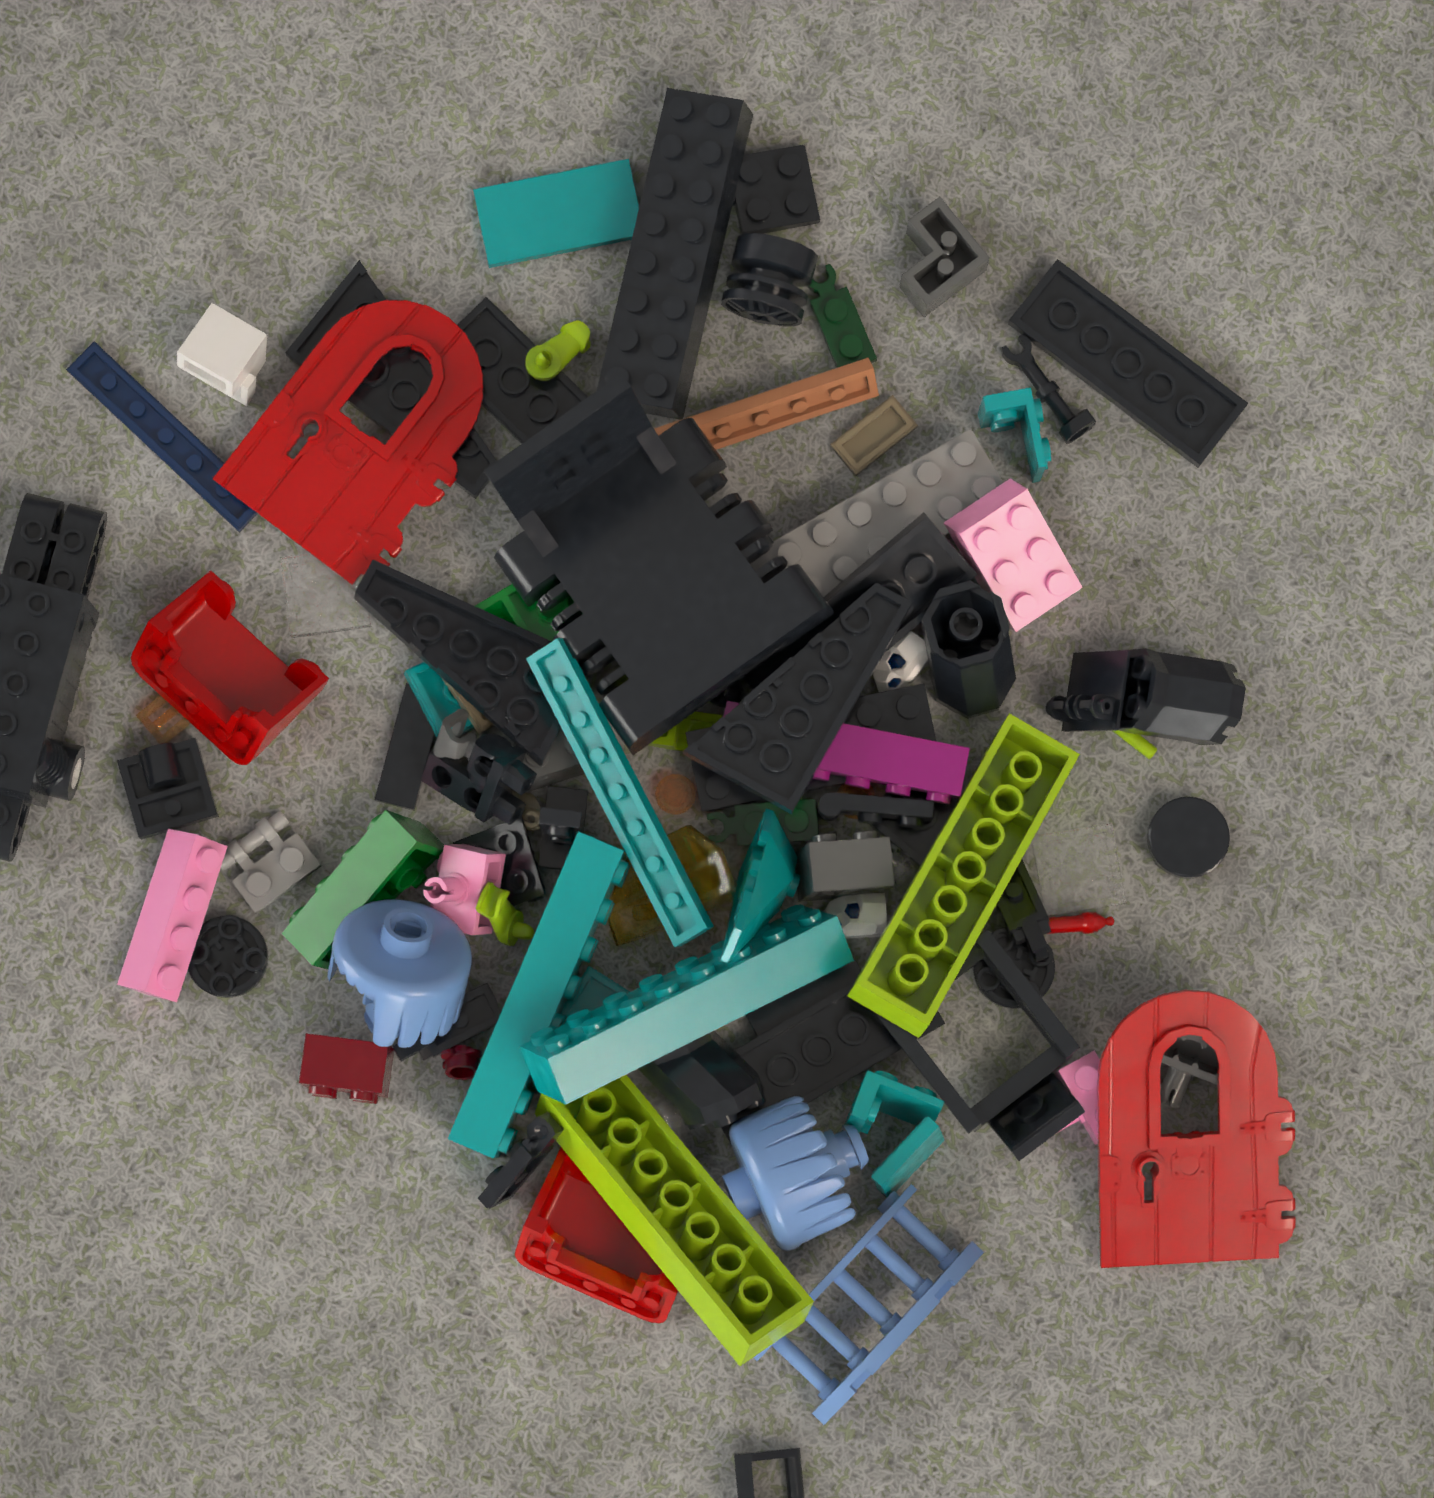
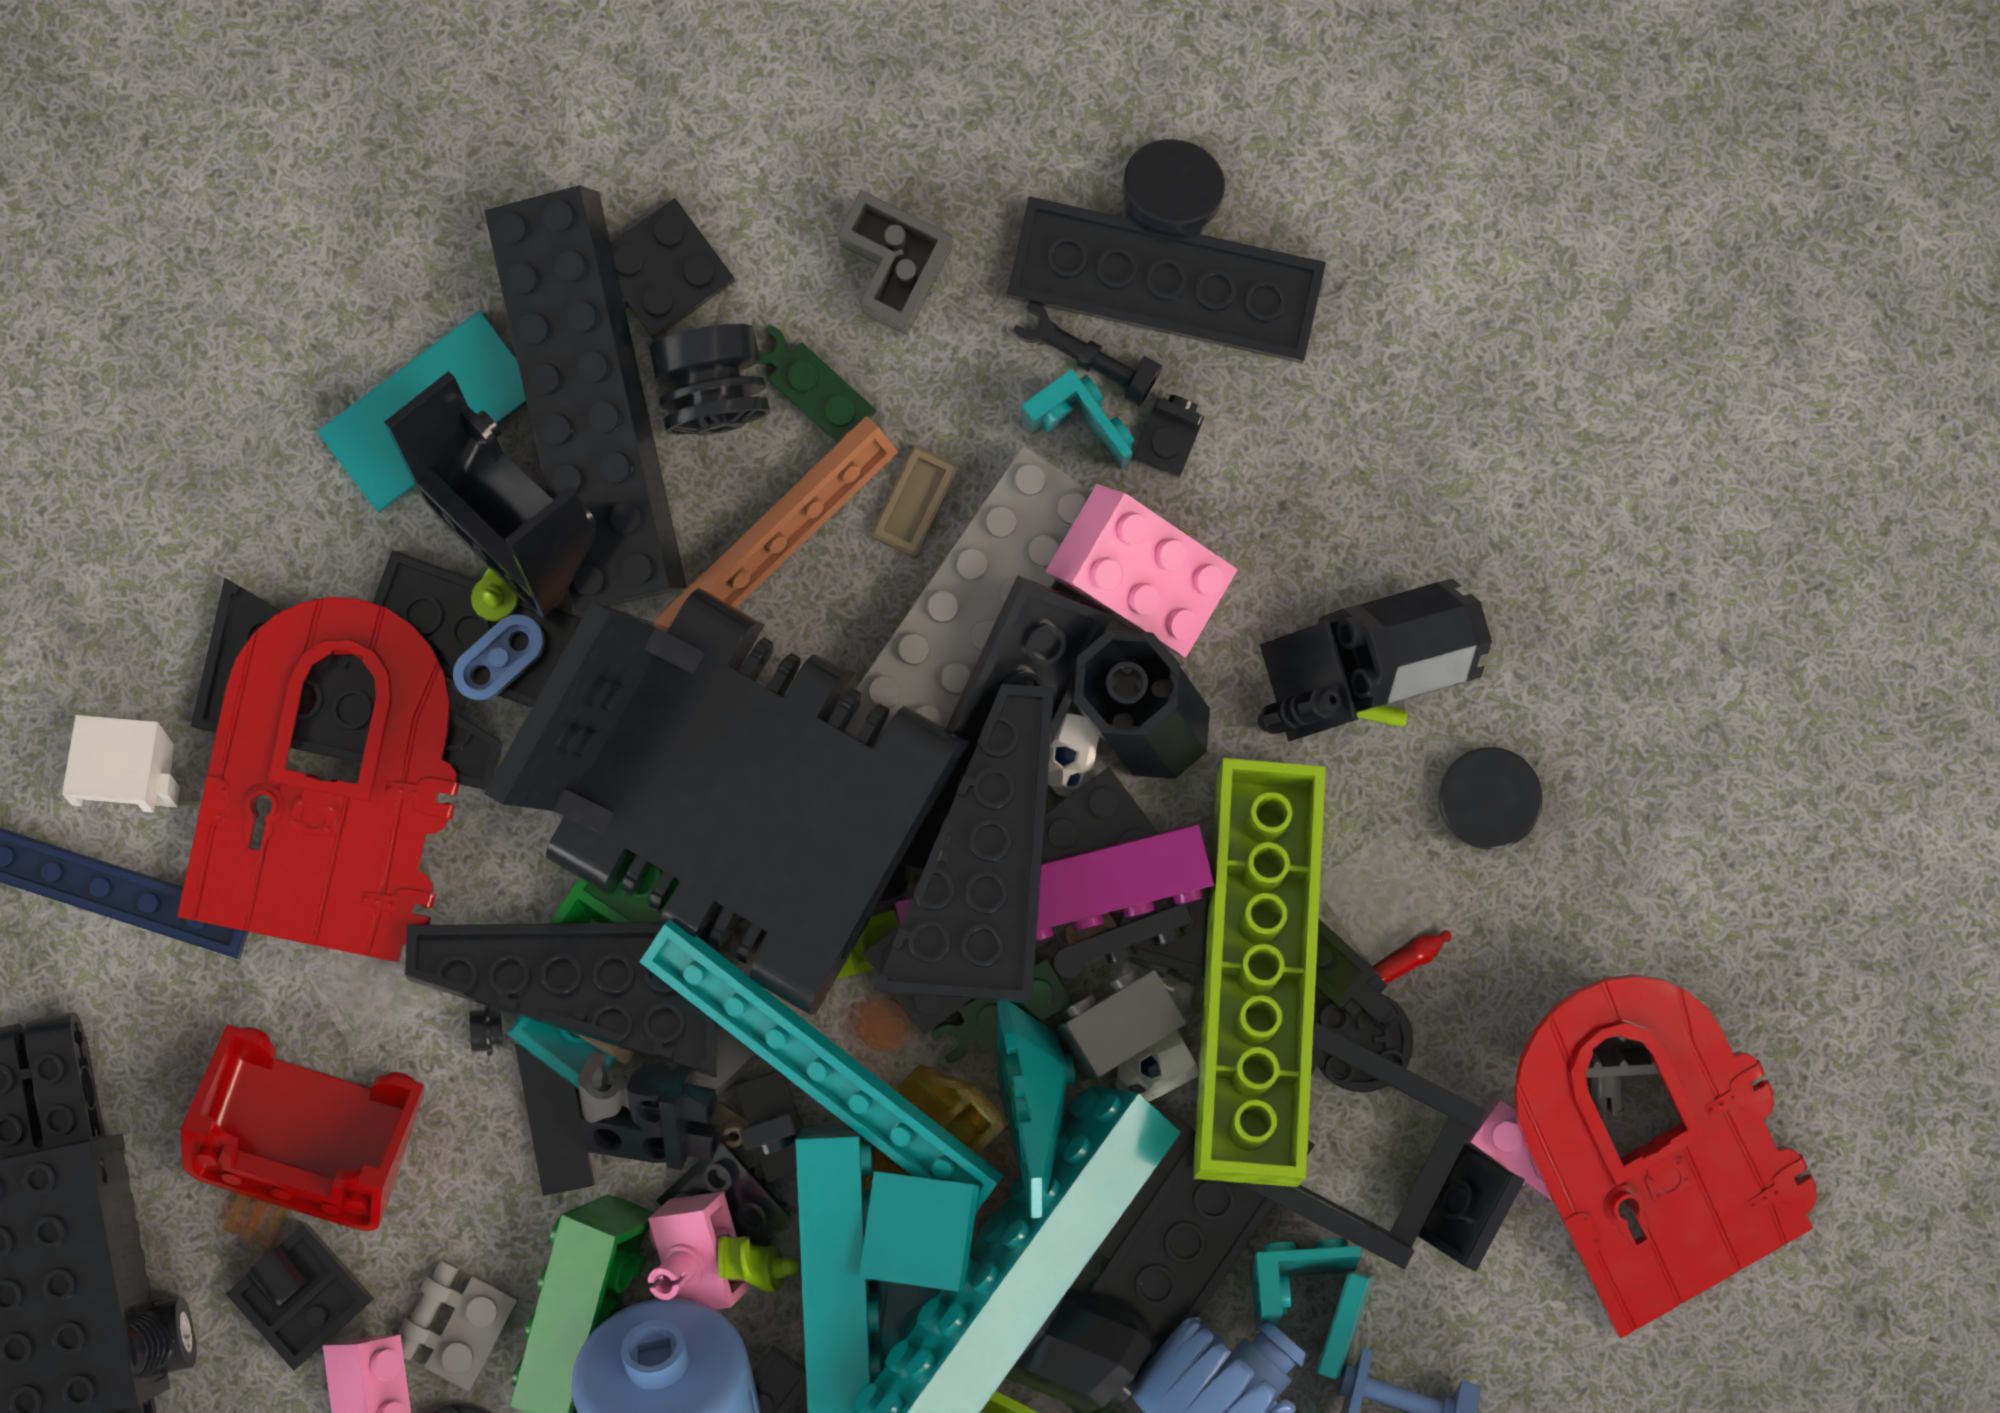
camera: 20 degrees left, 5 degrees up
(389, 663) = (485, 1030): none -> black plate
(525, 402) = (498, 655): none -> medium blue plate
(571, 290) = (488, 499): none -> black windscreen
(635, 935) = (919, 1231): none -> teal tile
(1079, 473) = (1169, 435): none -> black bracket
(1163, 299) = (1173, 187): none -> black tile

